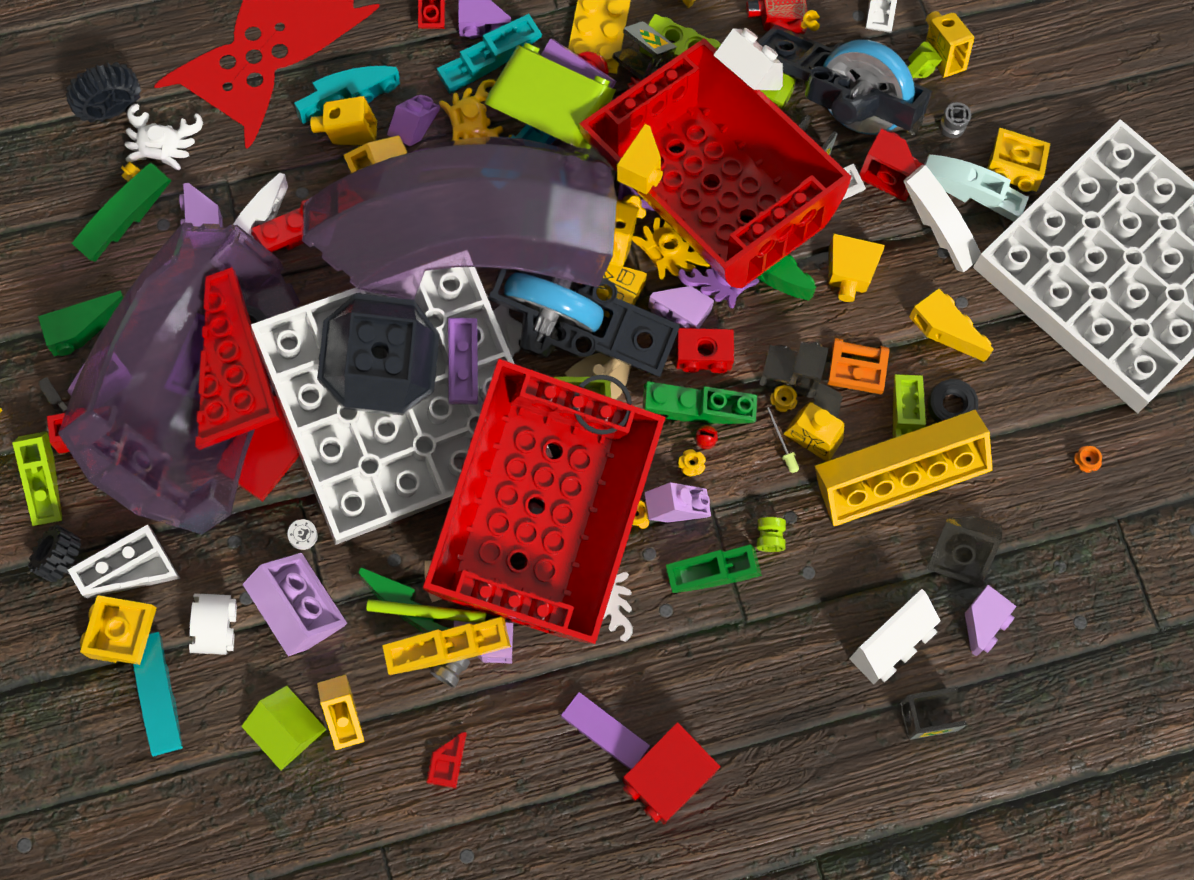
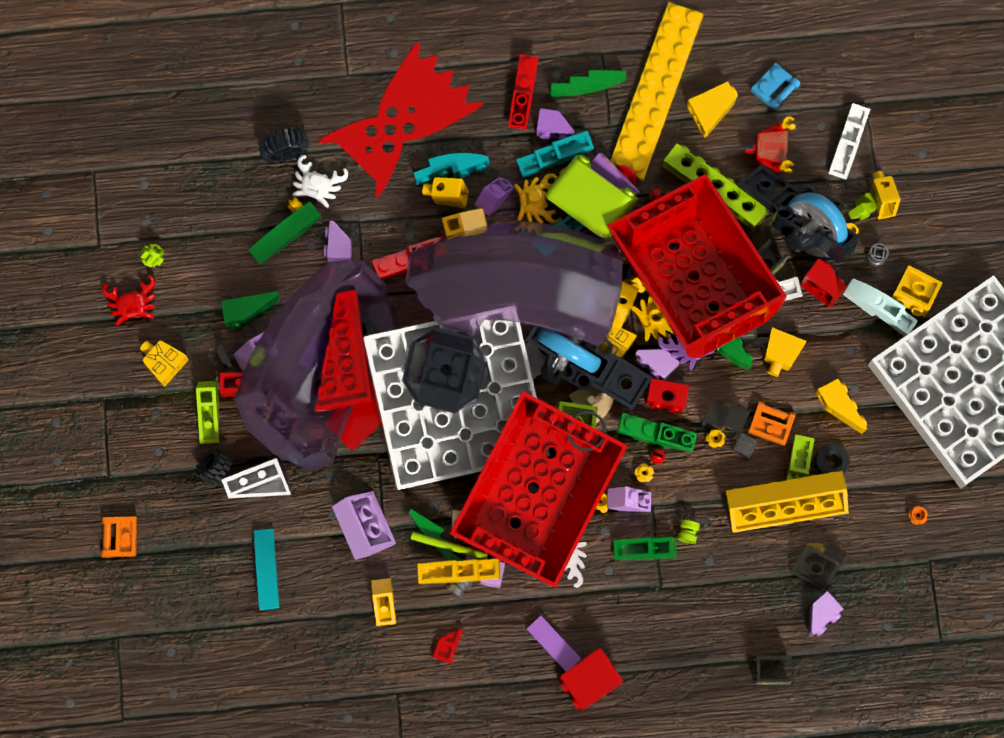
camera: 15 degrees right, 5 degrees up
(117, 630) = (247, 524): yellow plate -> none
(211, 624) = (309, 529): white brick -> none
(263, 205) = (380, 246): white slope -> none
(282, 726) = (344, 605): lime slope -> none
(302, 534) = (375, 479): white tile -> none
(462, 361) = (499, 382): medium lavender tile -> none
(641, 163) = (643, 264): yellow slope -> none
(650, 41) = (664, 171): clear smoke piece -> none
(751, 61) = (733, 198): white slope -> none
(789, 458) = (711, 481): yellowish green piece -> none
(816, 431) = (733, 465): yellow torso -> none
(897, 638) = (758, 617): white slope -> none
(943, 217) = (851, 328): white slope -> none

